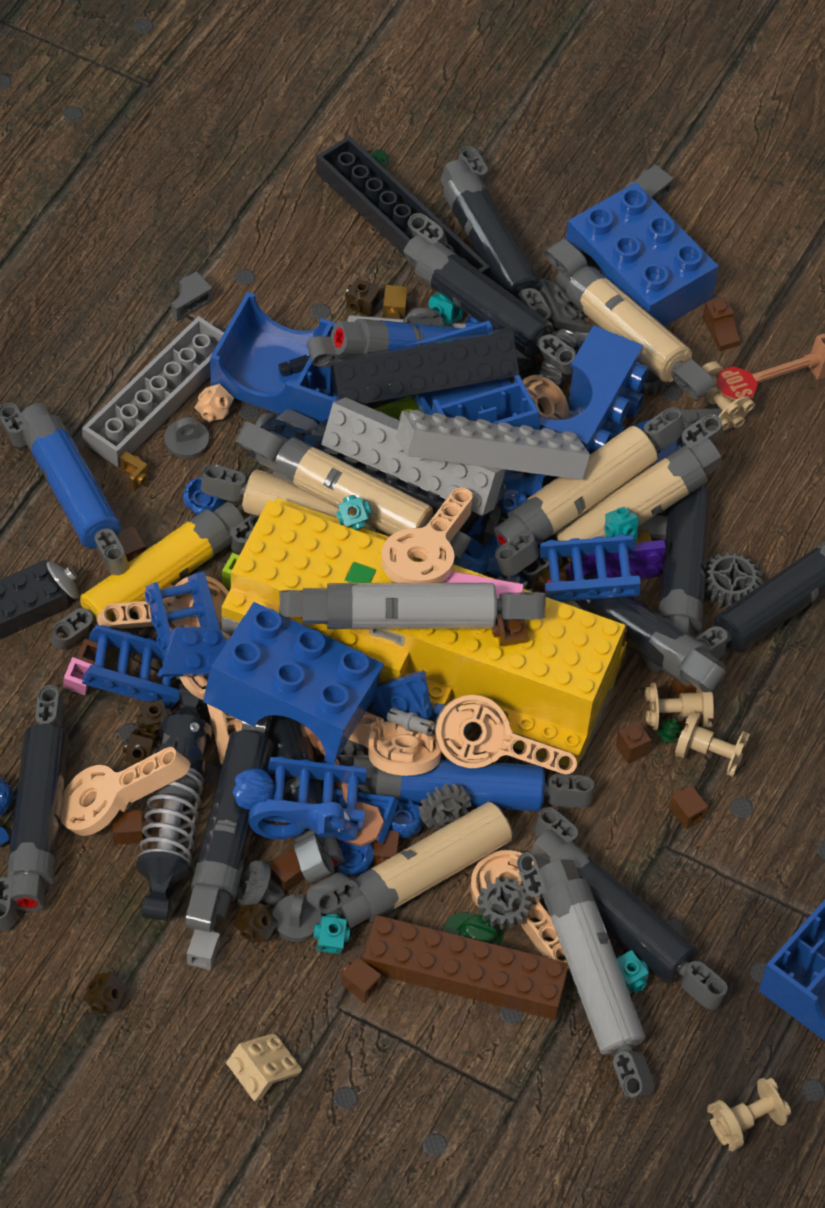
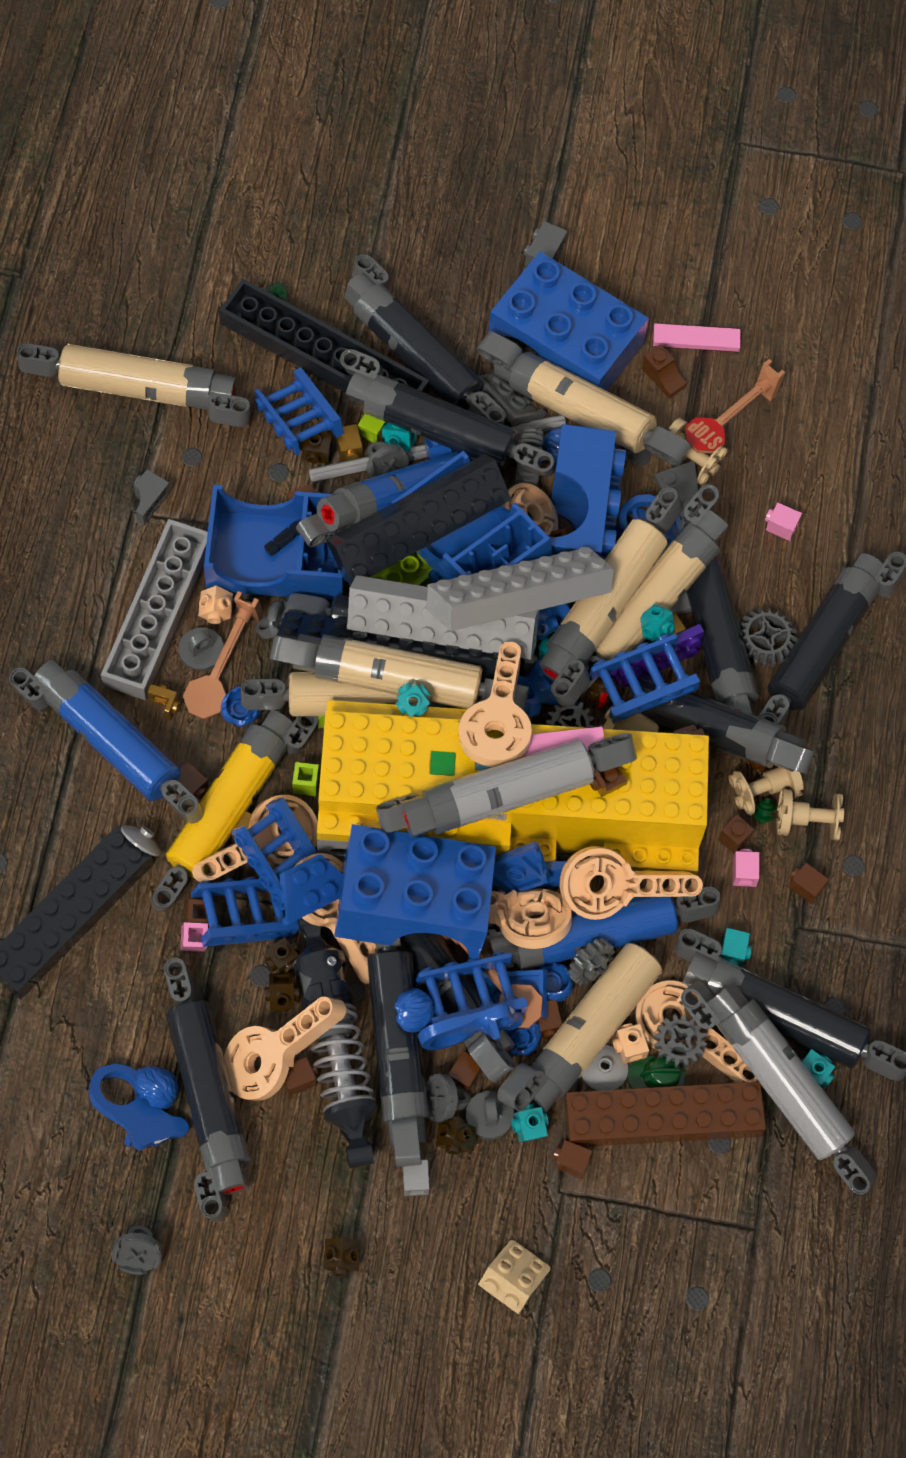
camera: 20 degrees left, 10 degrees up
(174, 476) = (206, 693): none -> nougat piece
(220, 195) = (139, 379): none -> piece
(373, 252) = (311, 396): none -> blue fence
(411, 721) = (533, 889): light grey pin -> none
(420, 294) = (370, 428): none -> lime brick
(433, 918) = (609, 1079): none -> light grey dish
(458, 894) = (631, 1043): none -> light nougat brick
(594, 840) = (735, 946): none -> teal brick
(631, 776) = (745, 868): none -> bright pink brick
(767, 305) = (696, 337): none -> bright pink tile
(788, 484) = (782, 521): none -> bright pink brick

